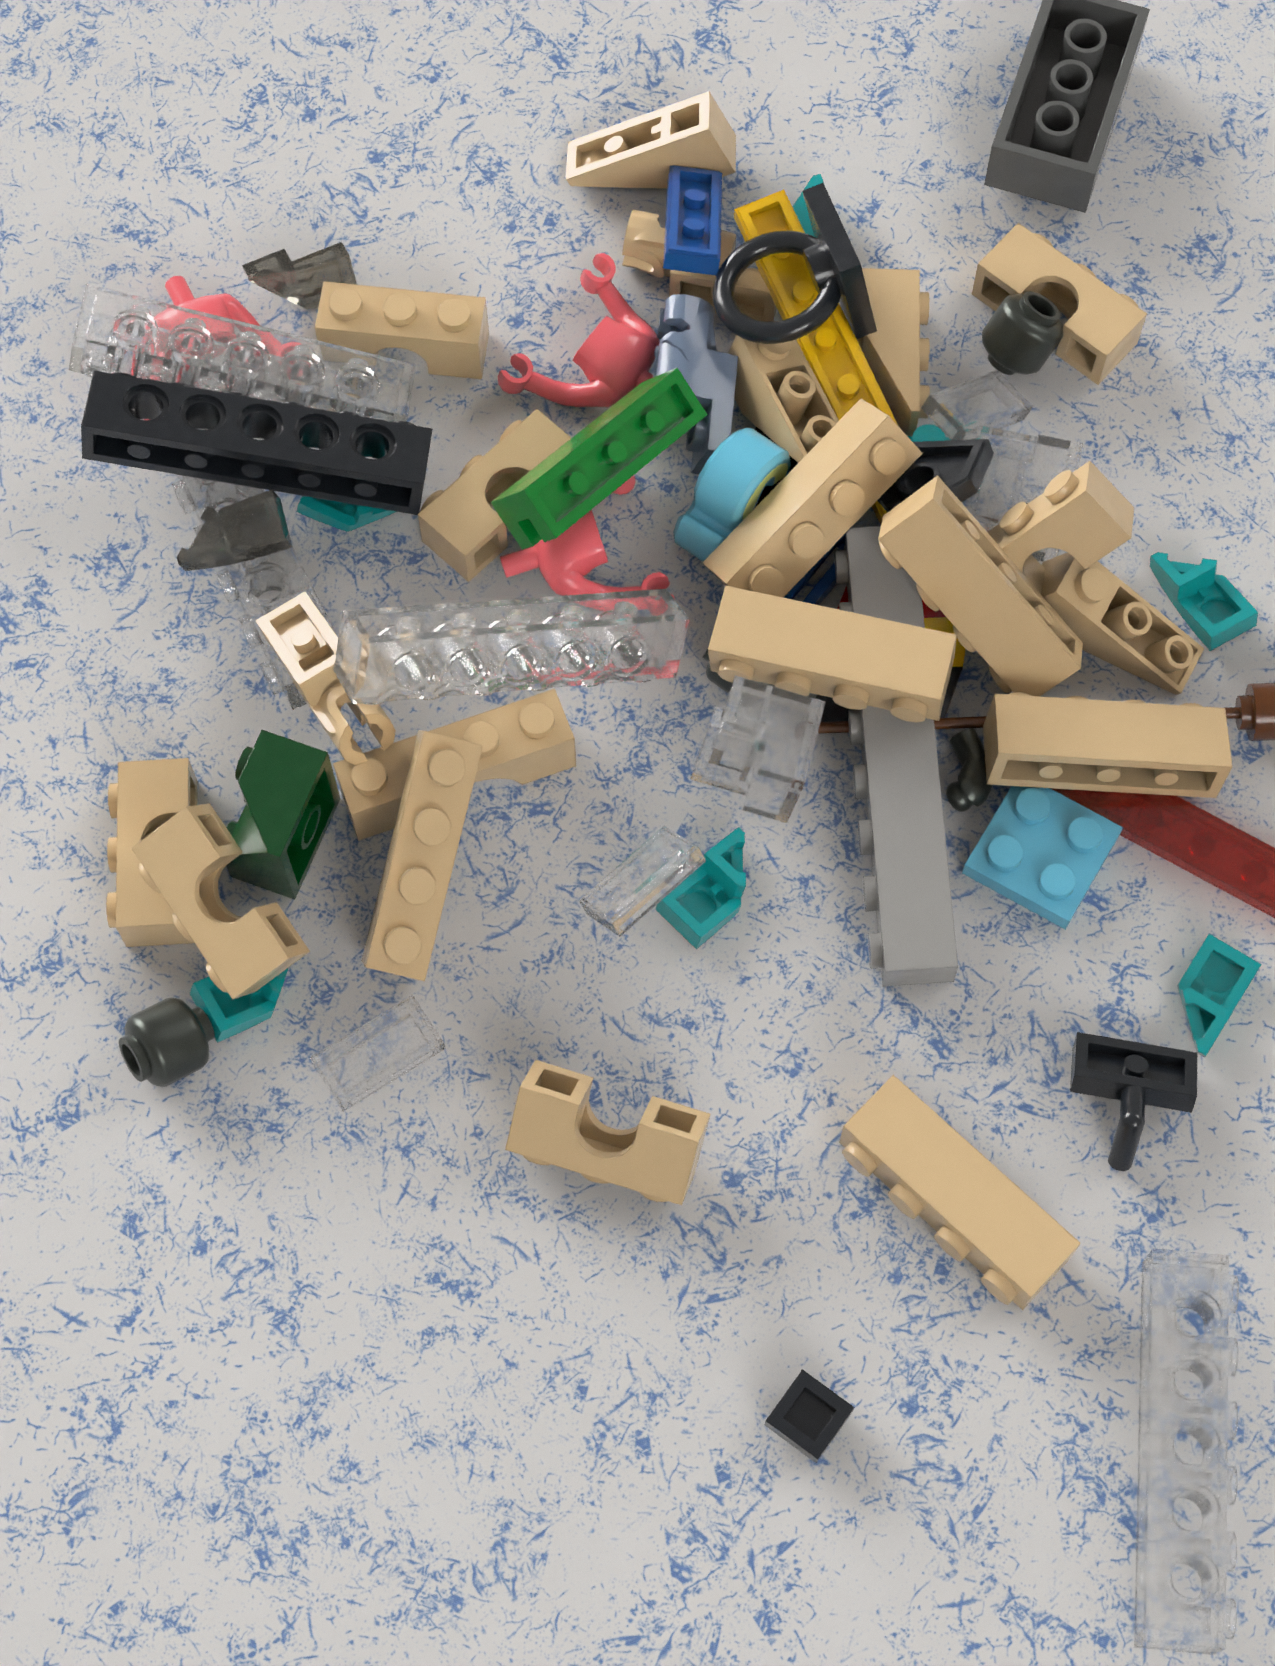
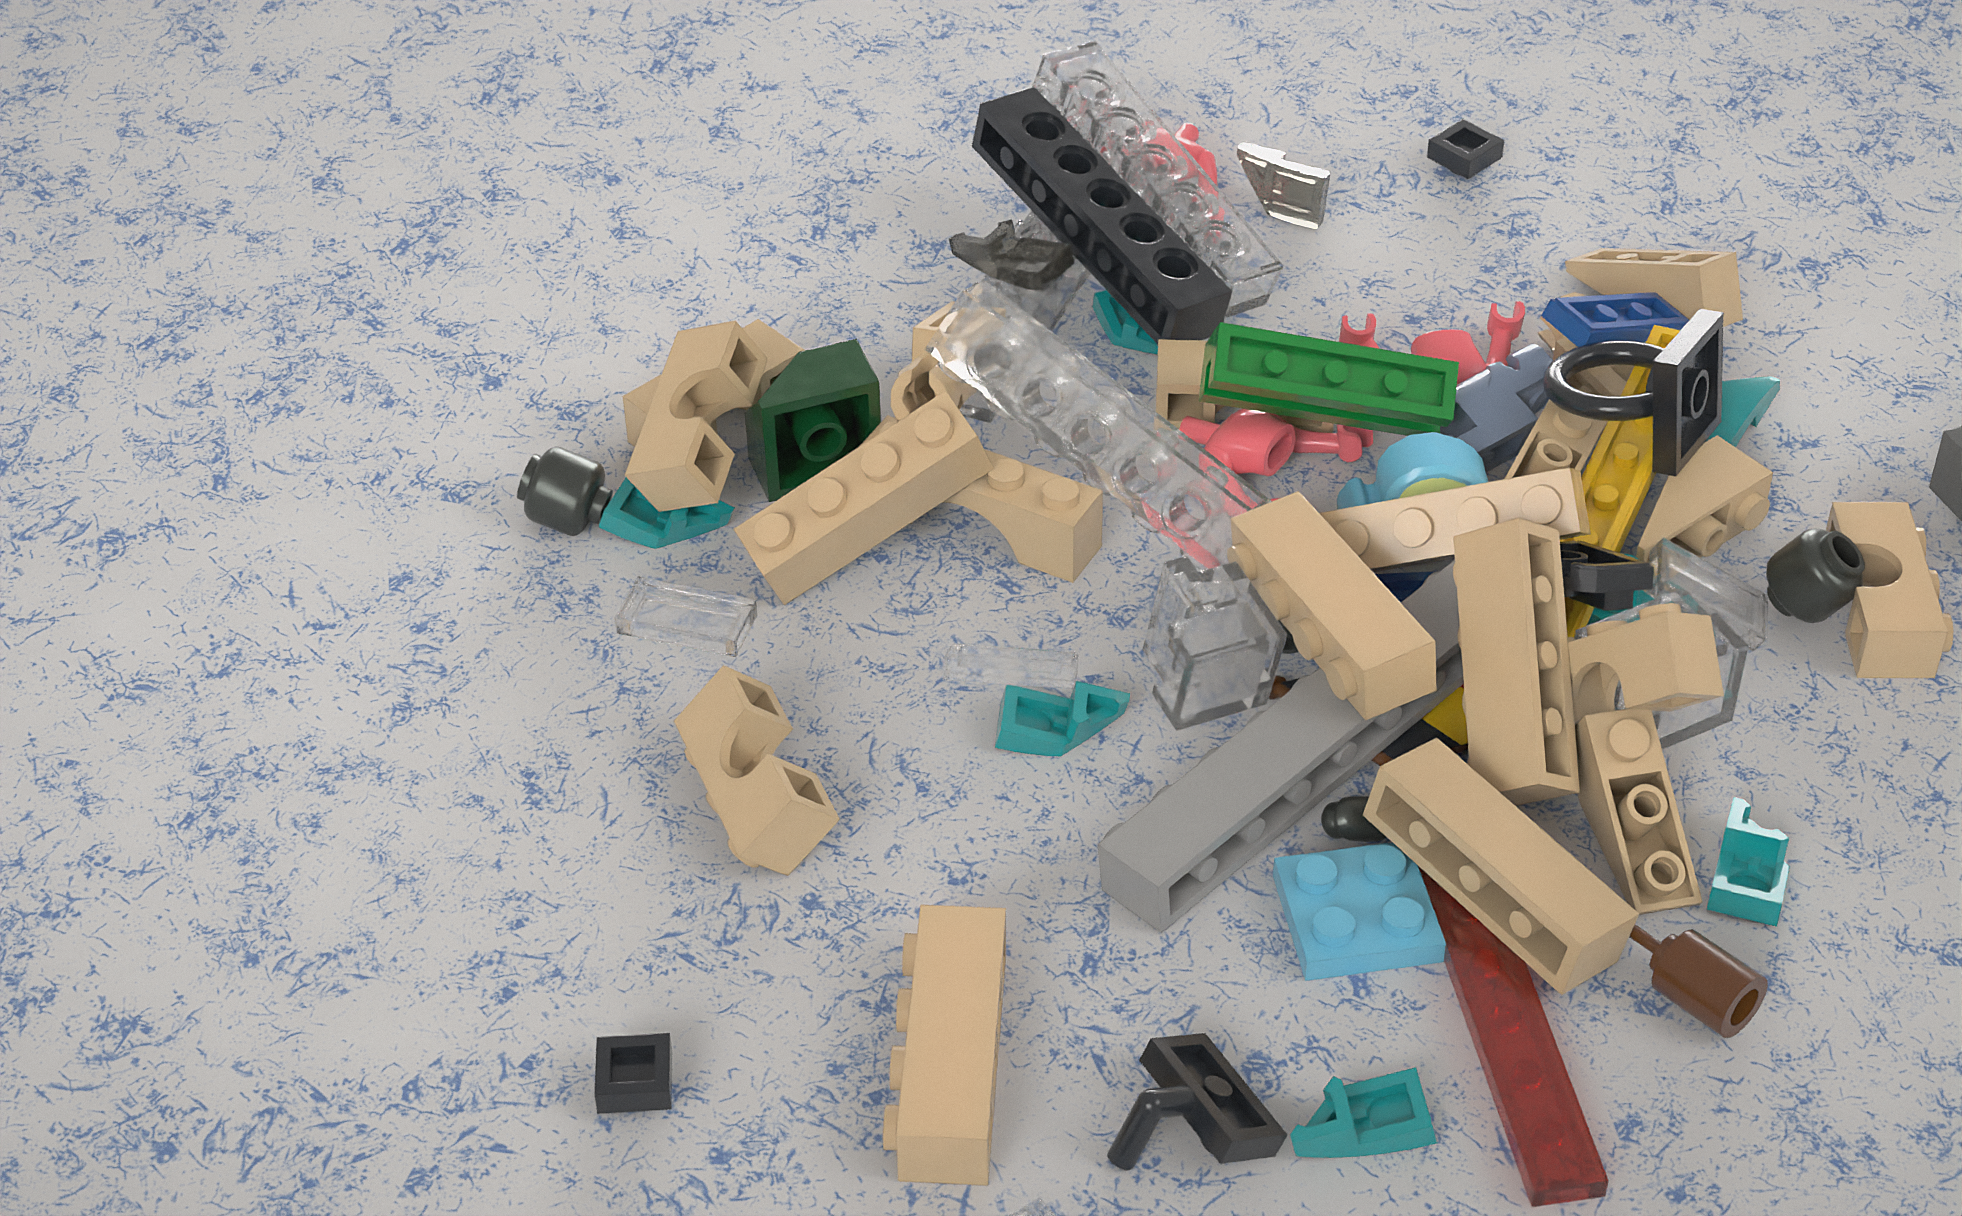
camera: 50 degrees right, 25 degrees down
(381, 126) = (1465, 148): none -> black plate
(439, 327) = (1335, 264): tan arch -> none

